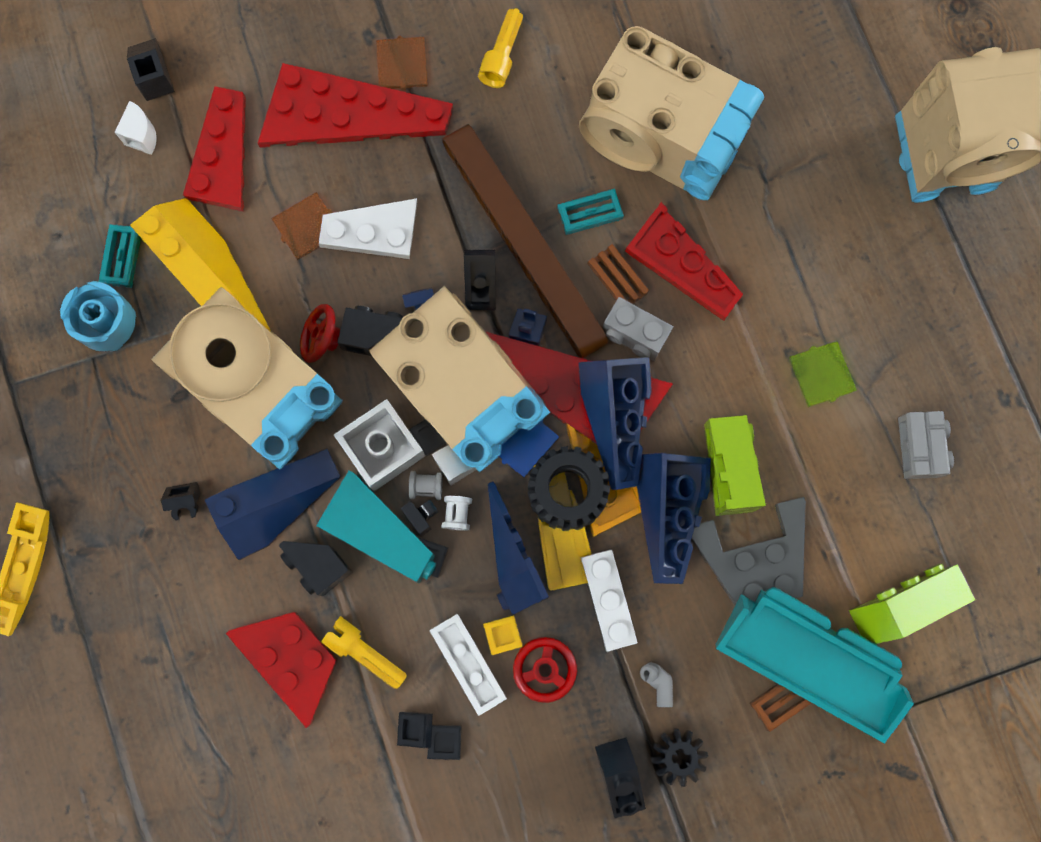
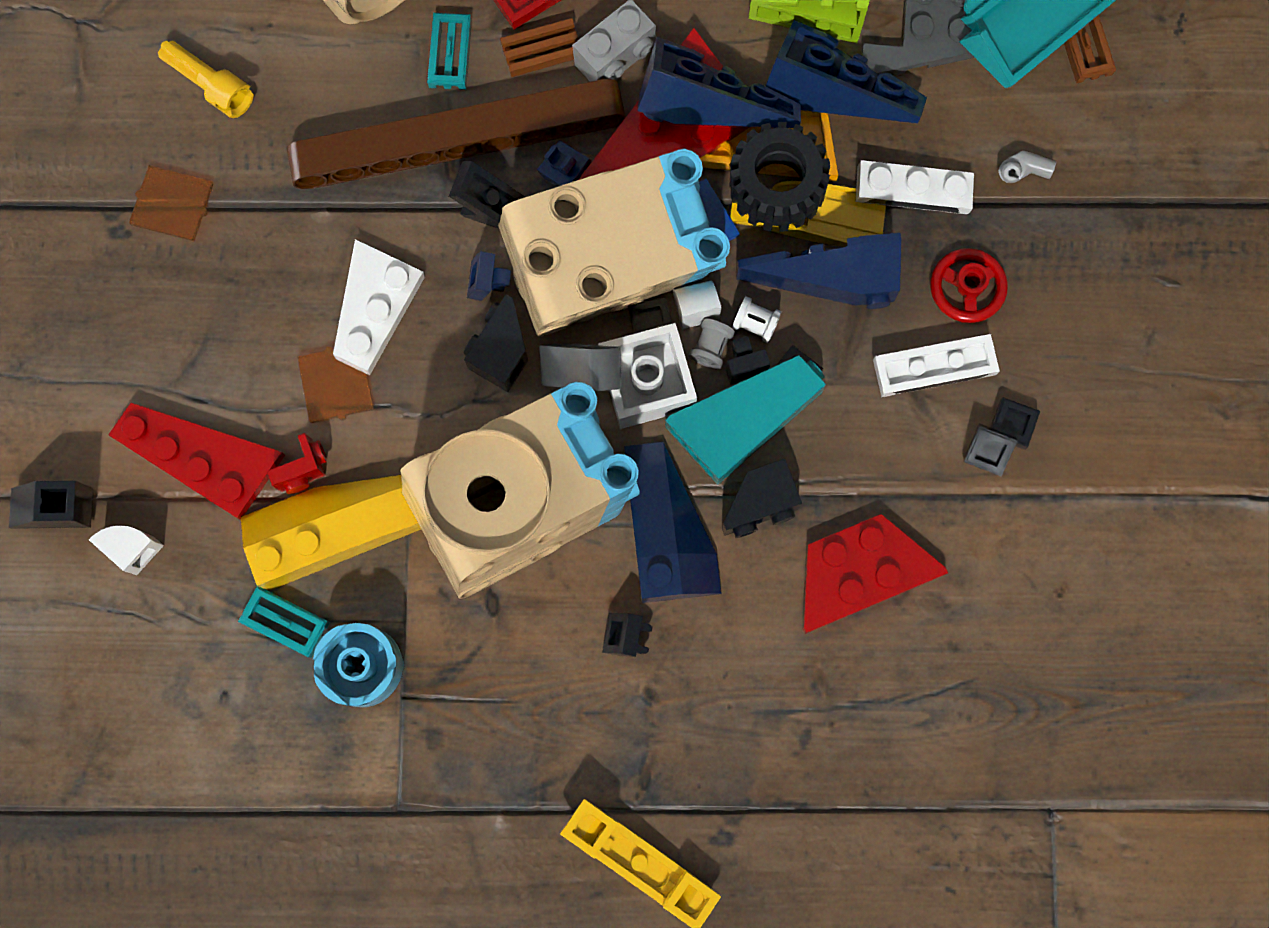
camera: 65 degrees left, 0 degrees up
(238, 231) = (297, 474): none -> red bracket
(323, 335) = (486, 401): red piece -> none
(339, 109) = (201, 296): red wing -> none
(352, 645) = (866, 491): yellow piece -> none
(364, 393) = (590, 364): none -> dark grey beam
(502, 635) = (914, 318): yellow tile -> none
(620, 777) = (1116, 240): black slope -> none
(673, 768) = (1129, 171): black gear -> none

